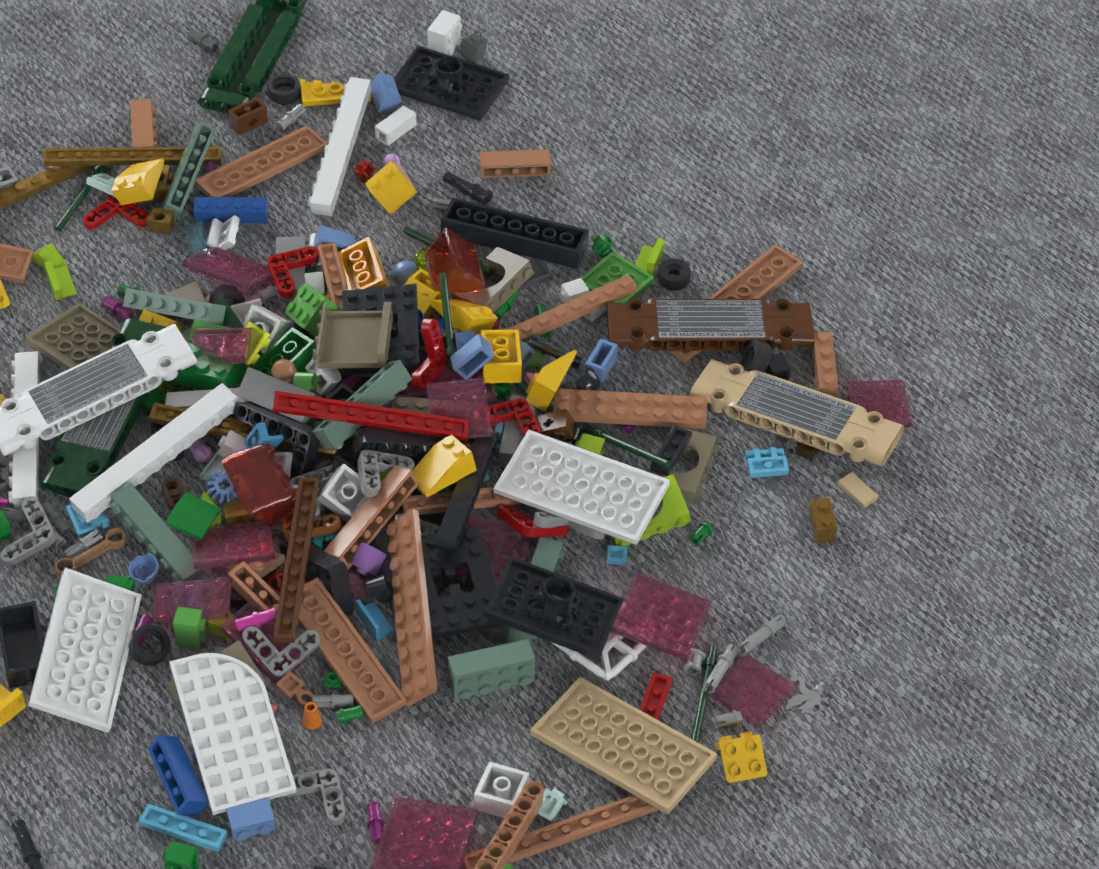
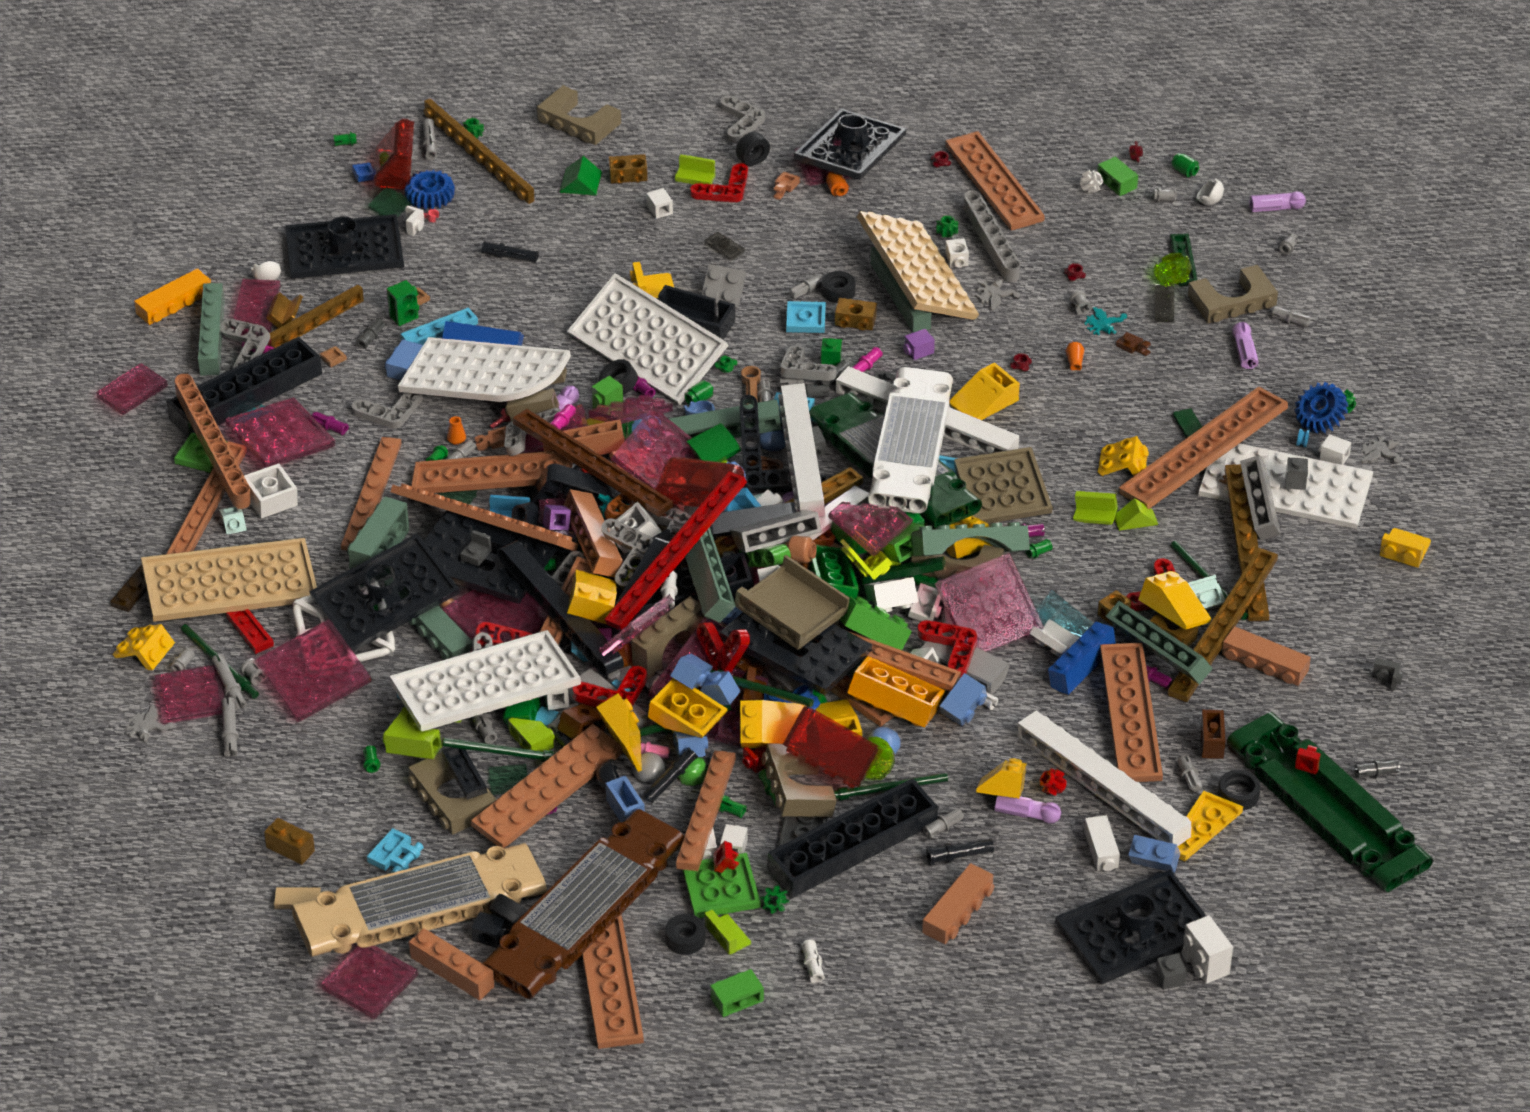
camera: 130 degrees right, 5 degrees down
(106, 66) = (1387, 670): none -> dark grey bracket
(189, 478) = (754, 453): none -> black beam
(237, 54) = (1308, 759): none -> red tile
(430, 732) = (373, 487): none -> nougat plate
(456, 578) = (477, 549): none -> dark grey bracket
(599, 277) = (725, 857): none -> red tile
(629, 206) = (812, 961): none -> white pin
(641, 442) = (505, 777): none -> clear green piece
(686, 816) = (130, 592): none -> dark brown plate
(694, 222) = (737, 992): none -> bright green brick

